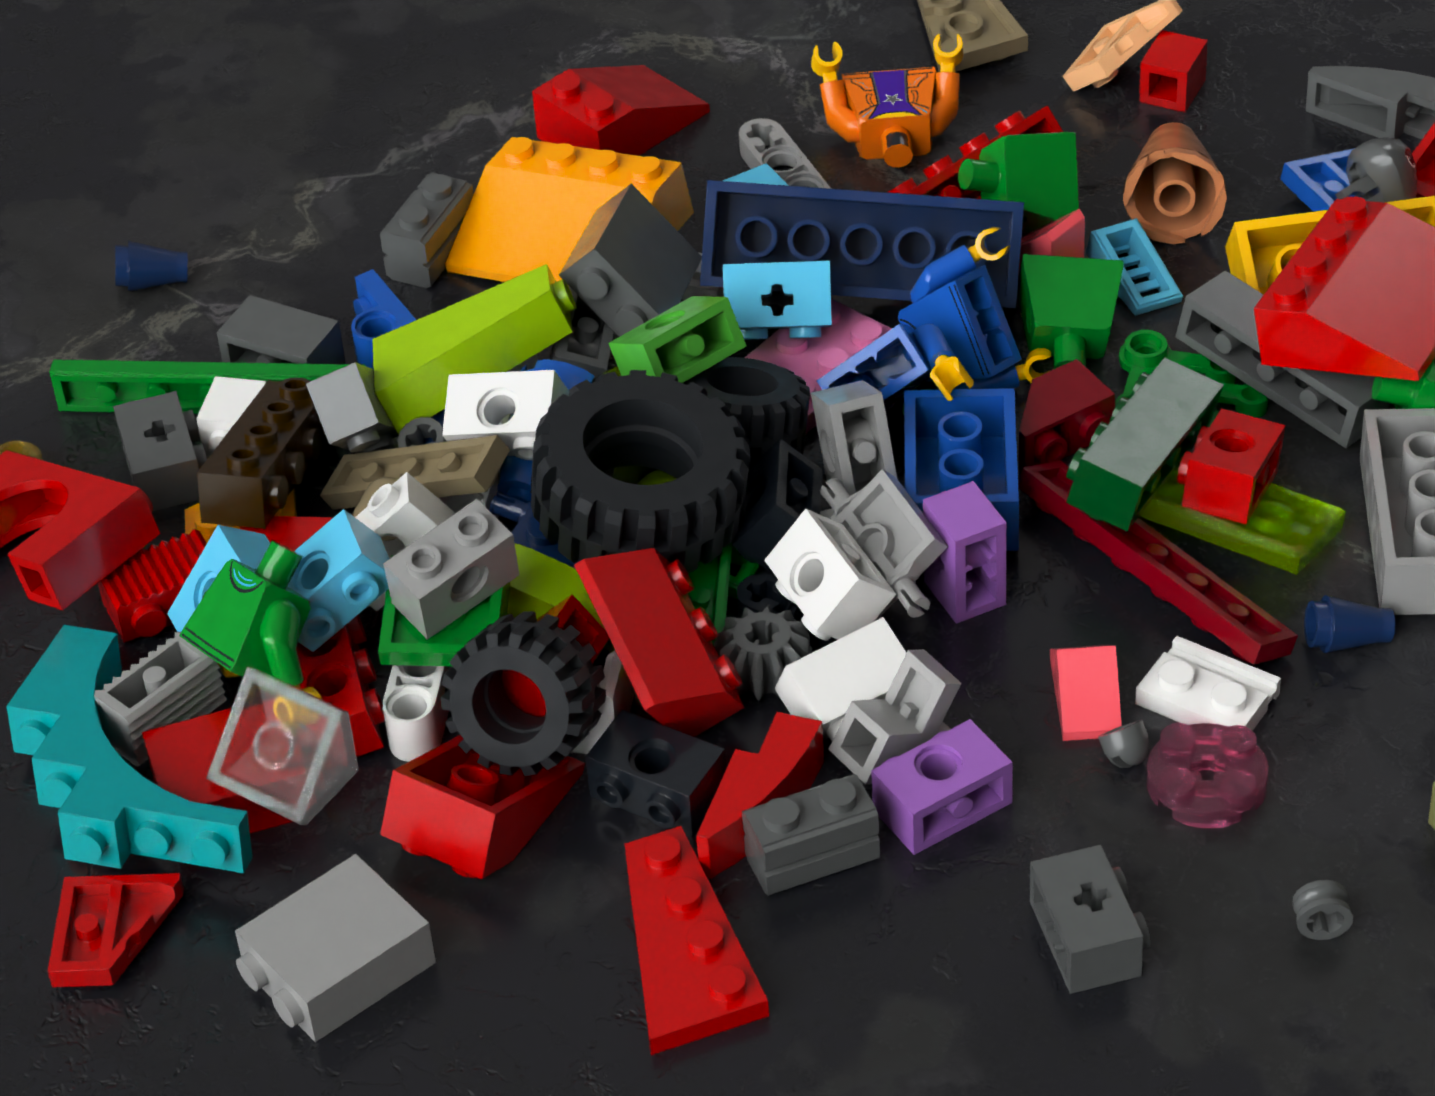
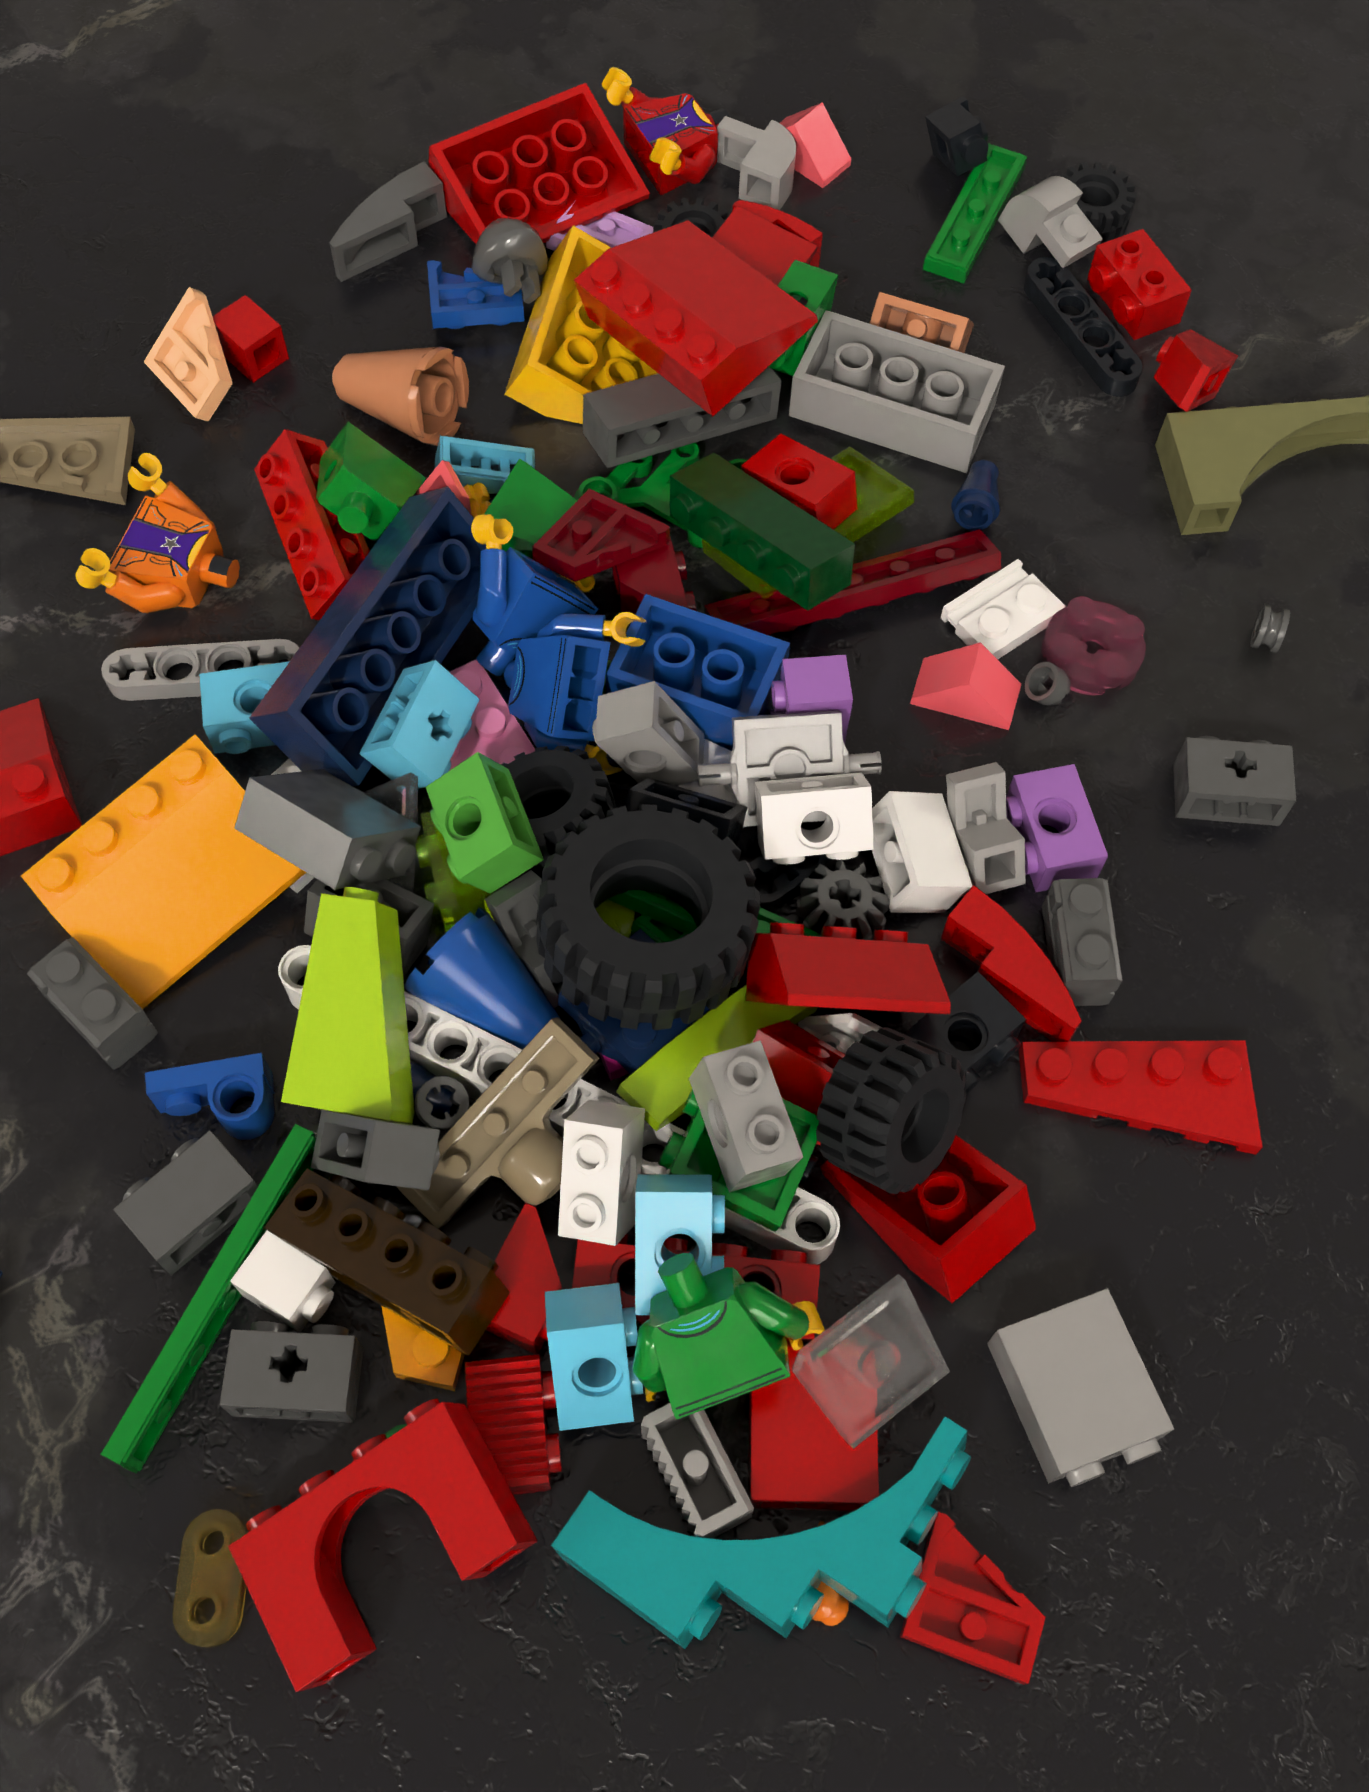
camera: 75 degrees left, 20 degrees up
(482, 399) = (464, 1023): white brick -> none
(1062, 338) = (598, 536): none -> dark red wing

